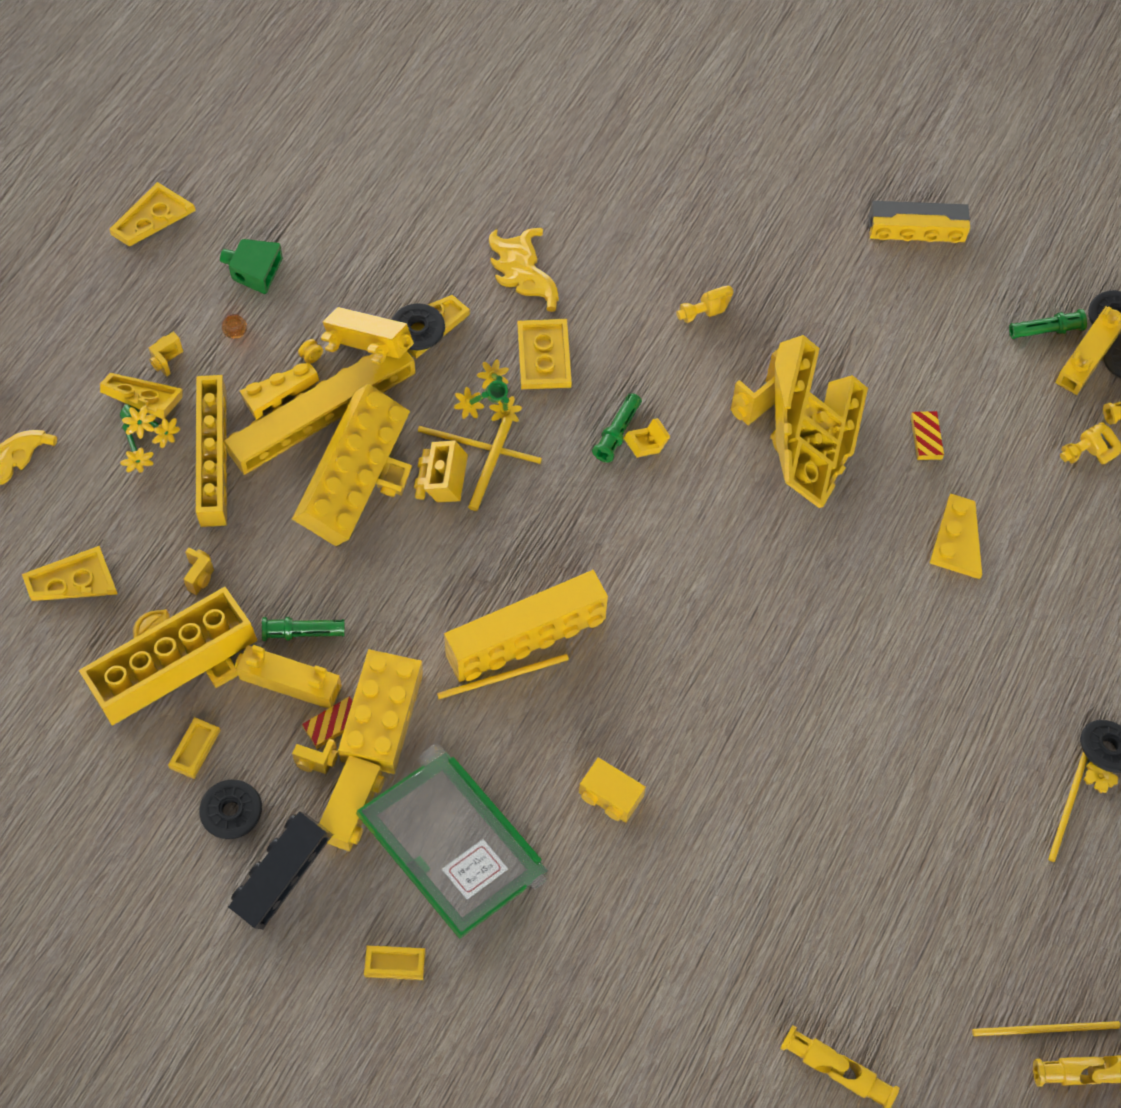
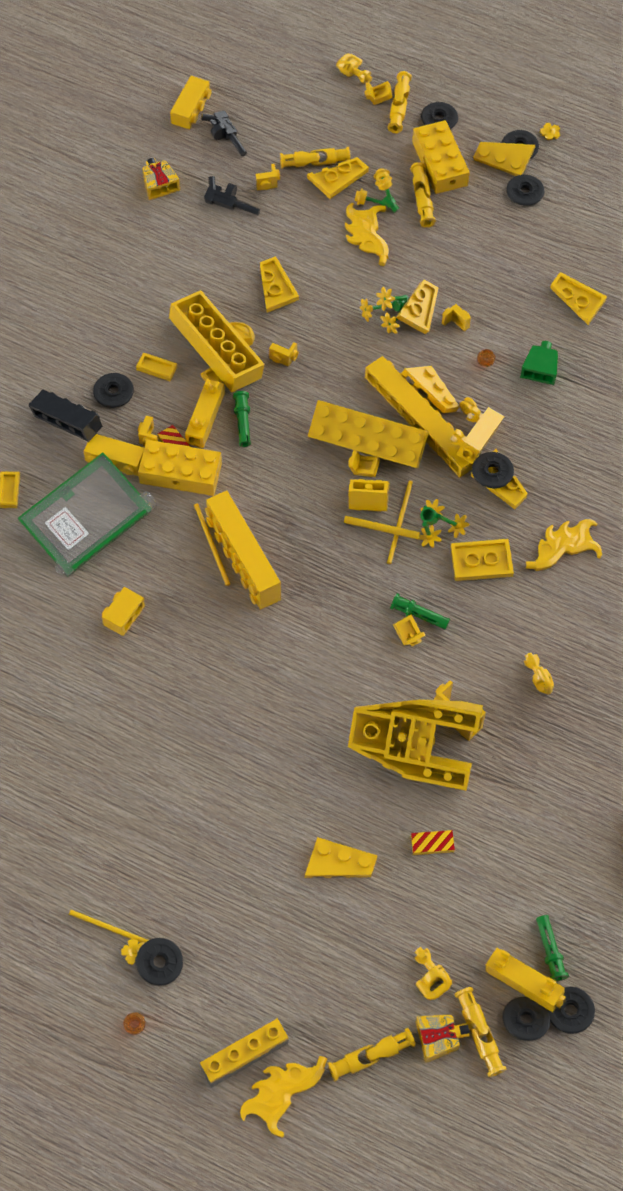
camera: 90 degrees right, 0 degrees up
(211, 451) = (368, 349): yellow brick -> none

